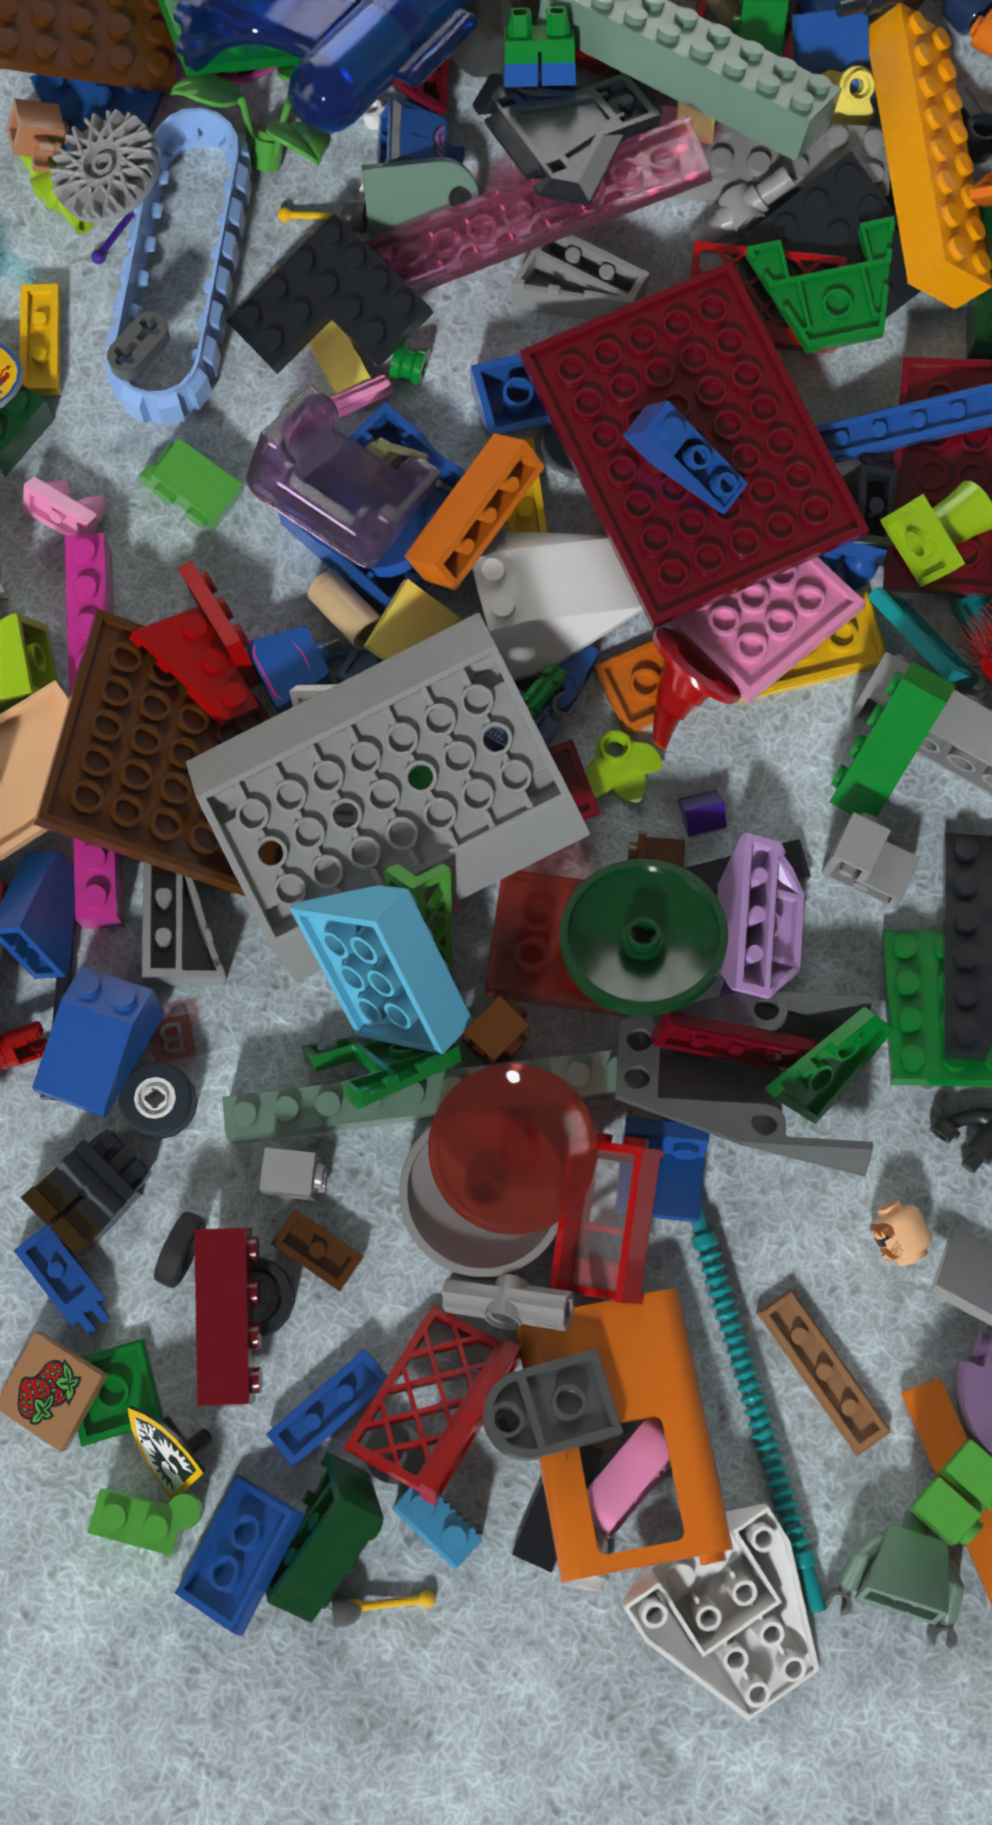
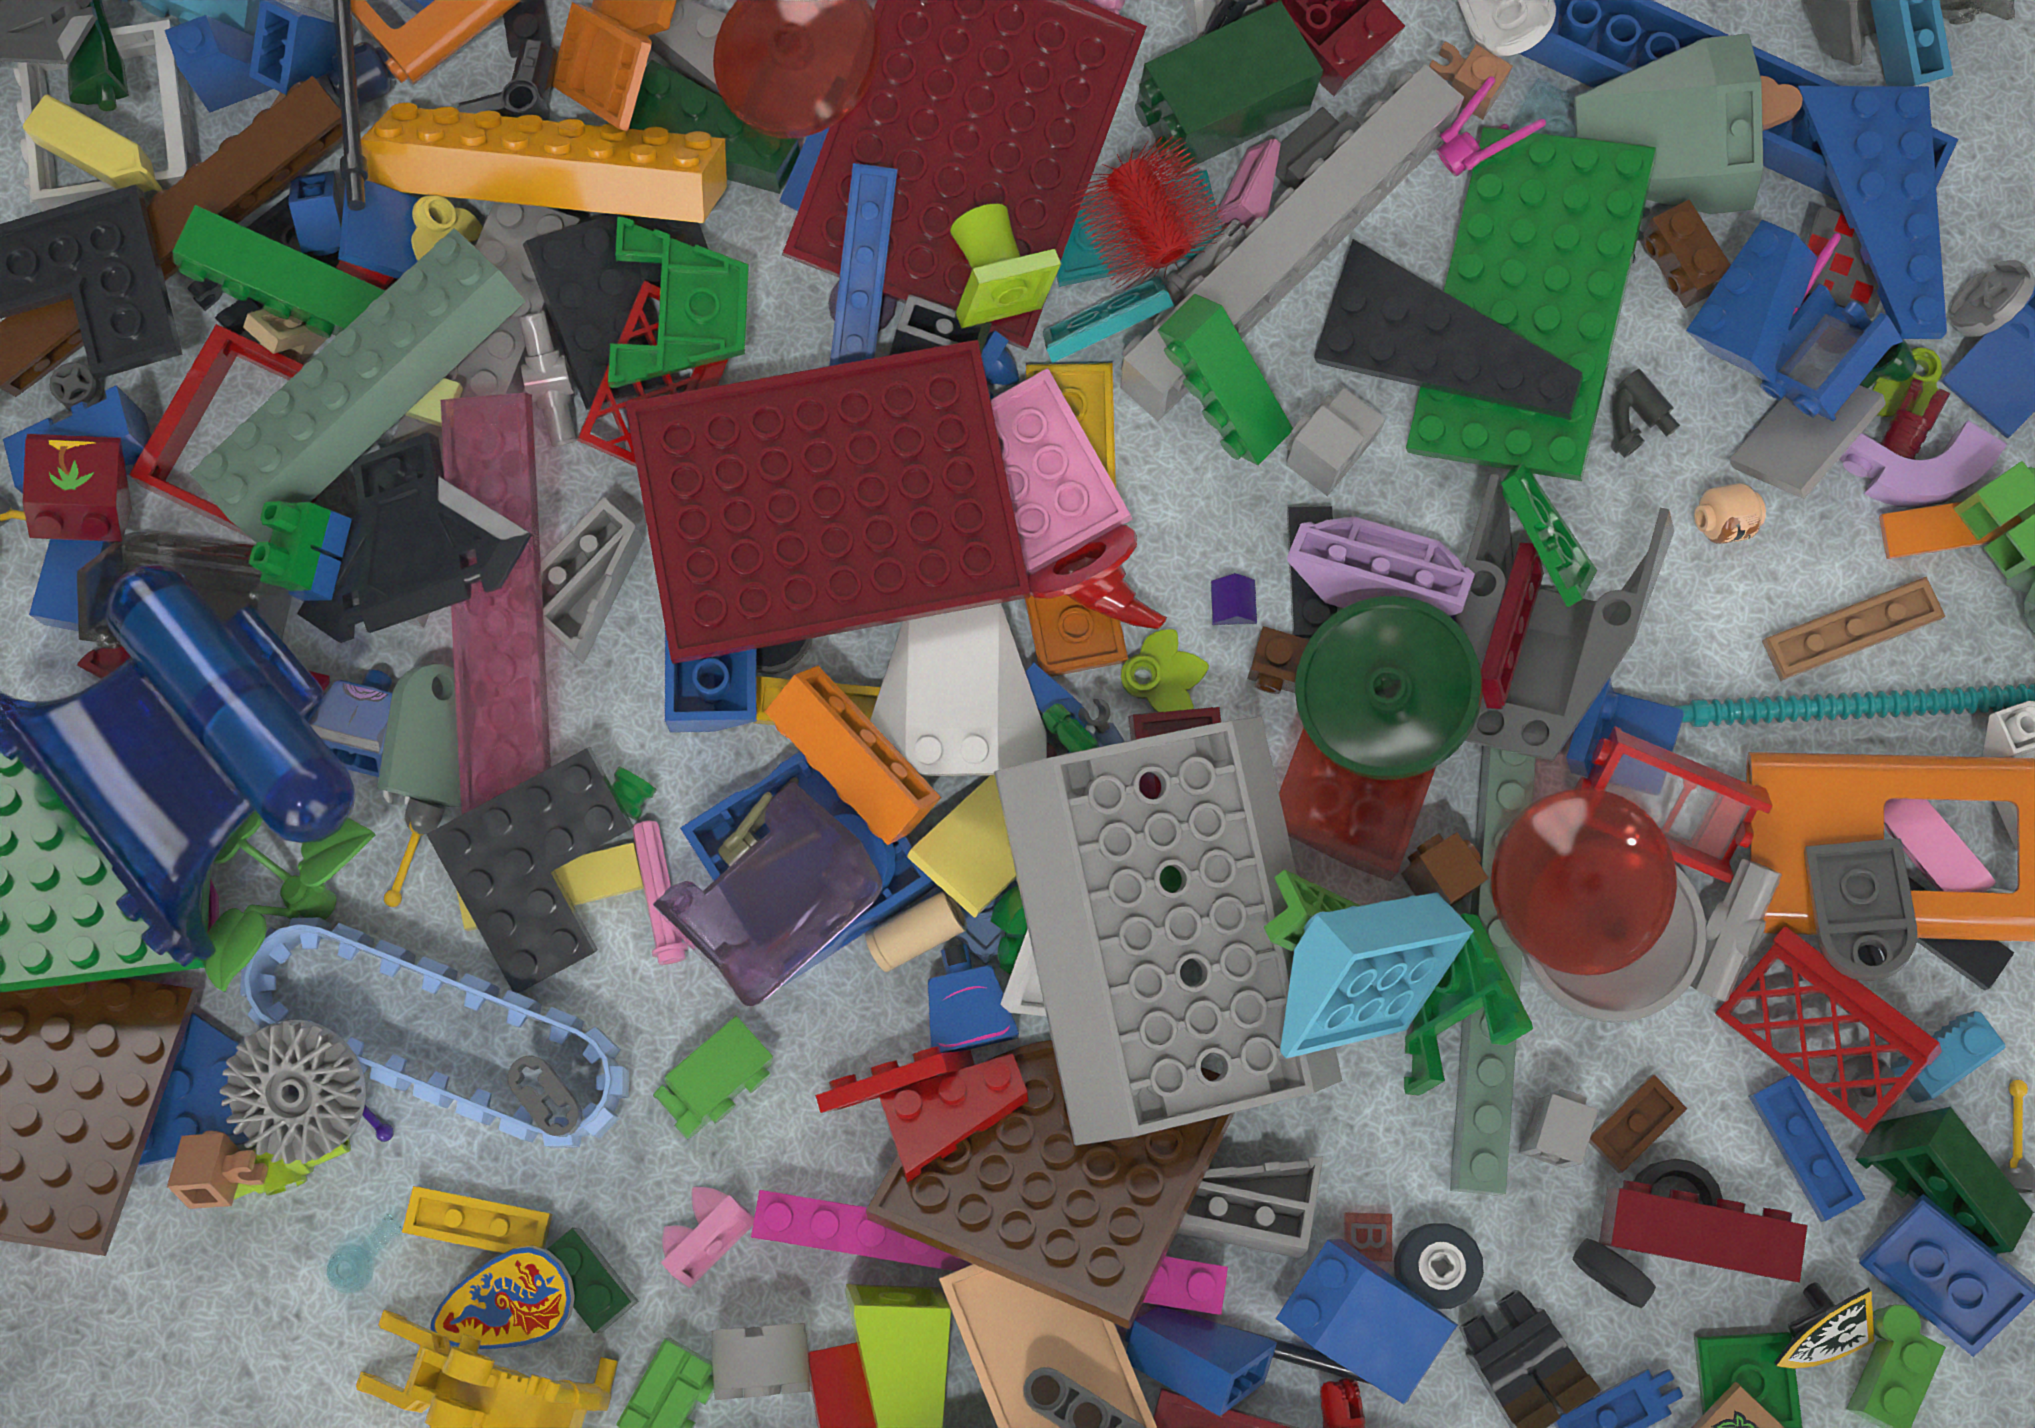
camera: 75 degrees left, 0 degrees up
(684, 455) = (850, 509): blue slope -> none

